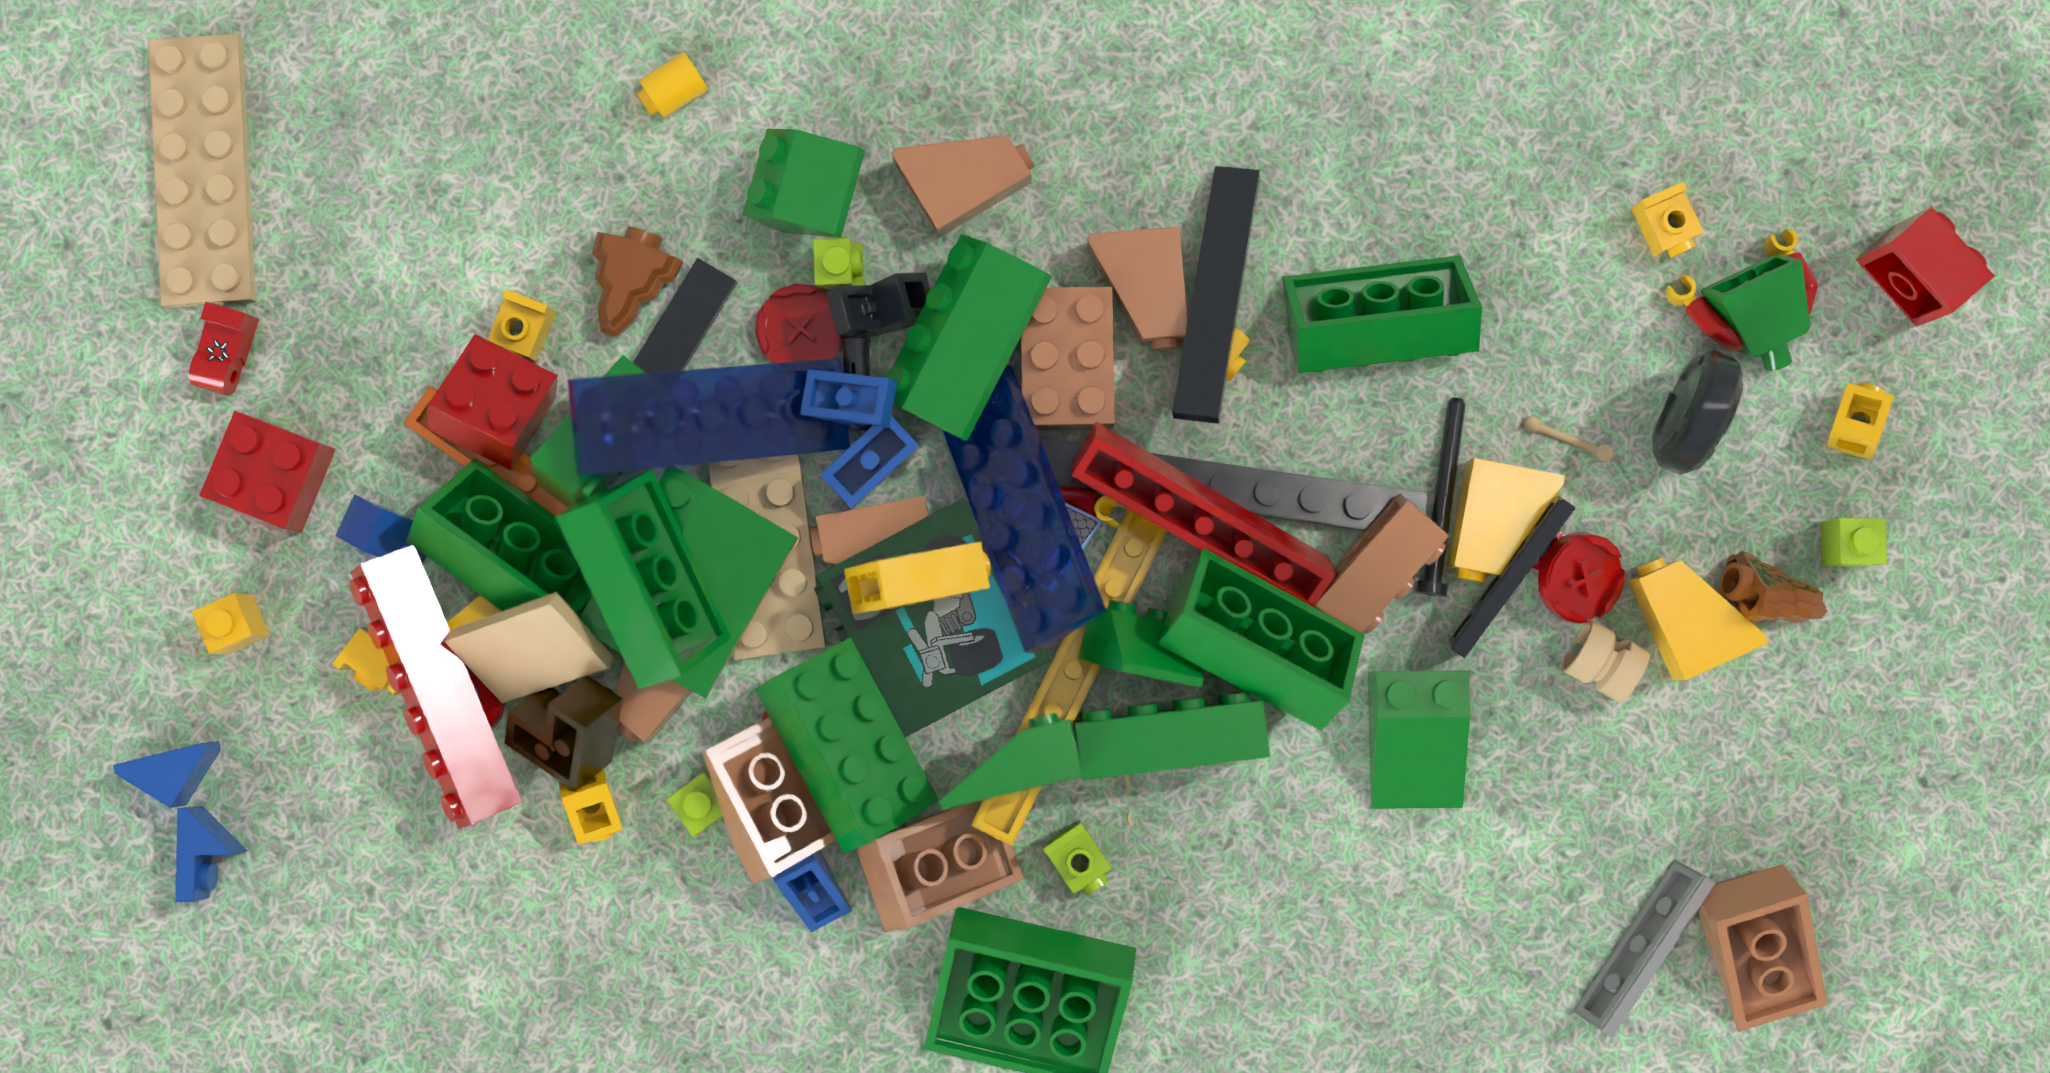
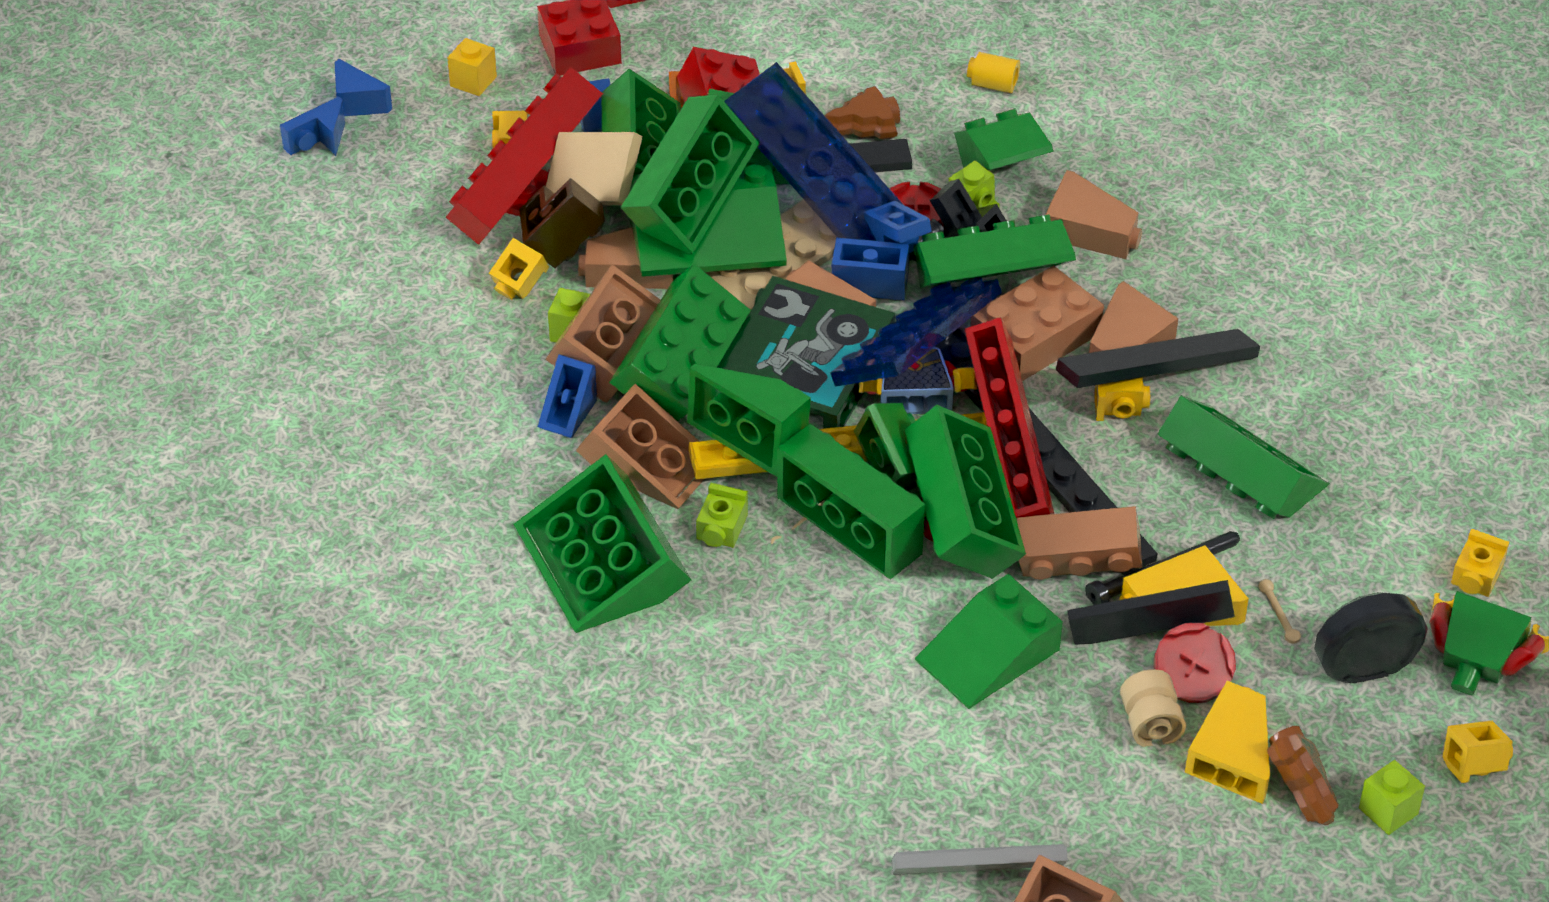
camera: 50 degrees right, 40 degrees down
(917, 577) = (822, 304): yellow slope -> none

